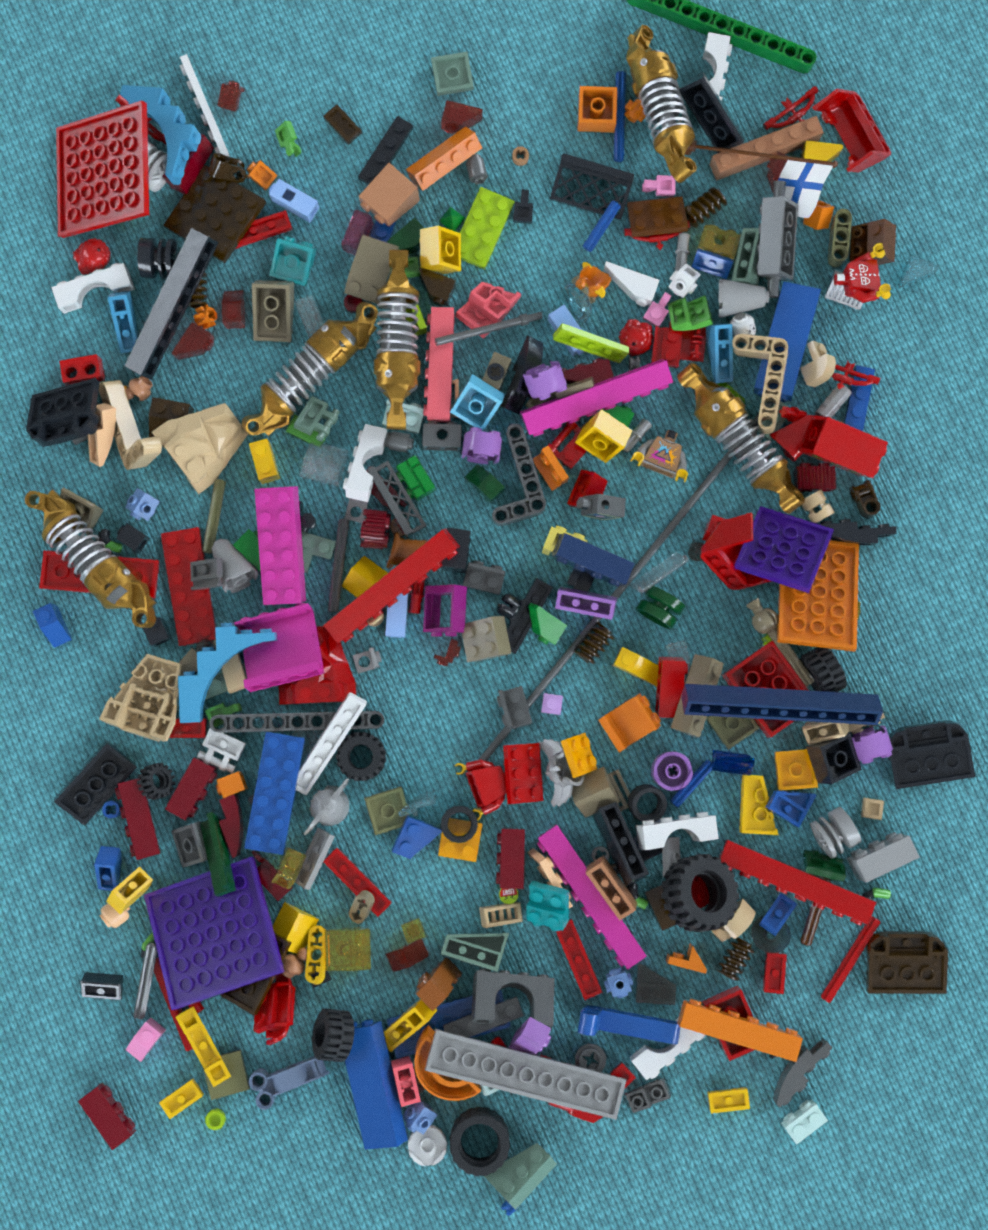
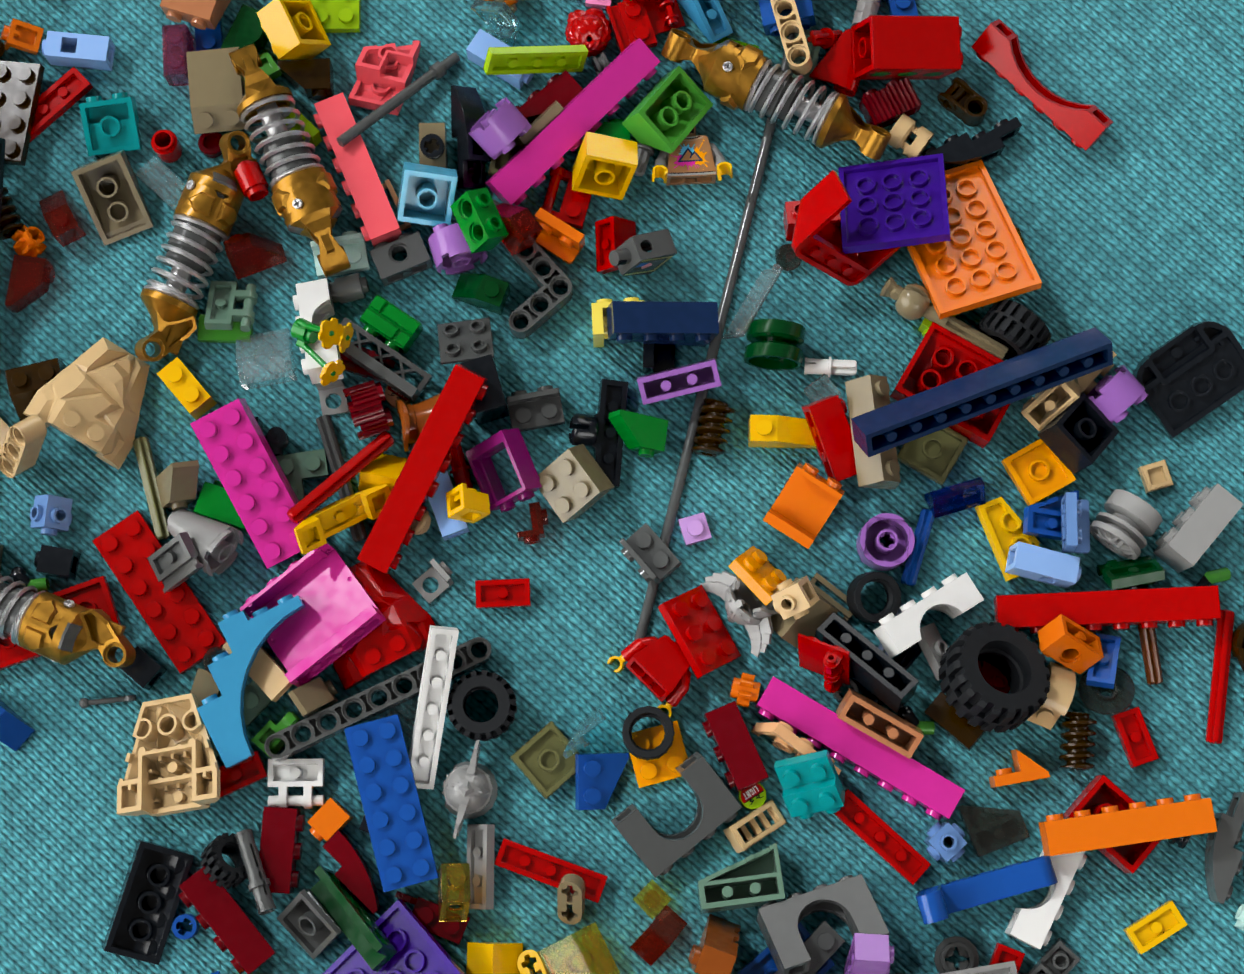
camera: 25 degrees left, 5 degrees down
(110, 636) = (84, 702): none -> dark grey hinge
(169, 797) = (258, 882): none -> dark grey pin
(230, 523) = (178, 484): none -> dark tan slope
(256, 701) = (314, 696): none -> dark tan slope
(322, 292) = (166, 146): none -> red brick
(325, 591) = (340, 515): none -> yellow slope
(336, 567) = (340, 477): none -> red axle
(346, 390) = (252, 254): none -> clear red slope
(366, 342) = (251, 180): none -> red brick
(367, 470) = (330, 334): none -> plant
(408, 689) = (503, 593): none -> red plate
(410, 622) = (467, 504): none -> yellow brick
(433, 902) = (714, 807): none -> dark grey arch
(458, 512) = (465, 340): none -> dark grey hinge
(503, 437) = (479, 220): none -> green brick
(524, 450) = (521, 227): none -> clear red slope
(535, 824) = (745, 689): none -> orange gear
(593, 782) = (794, 598): none -> tan brick
(599, 834) = (825, 659): none -> red hinge
(663, 418) = (668, 112): none -> bright green slope
(691, 637) = (830, 367): none -> white axle
(760, 894) = (1070, 644): none -> orange brick
(768, 834) = (1043, 565): none -> light blue brick
(802, 817) = (1075, 524): none -> medium blue bracket
(908, 476) = (1002, 50): none -> red arch

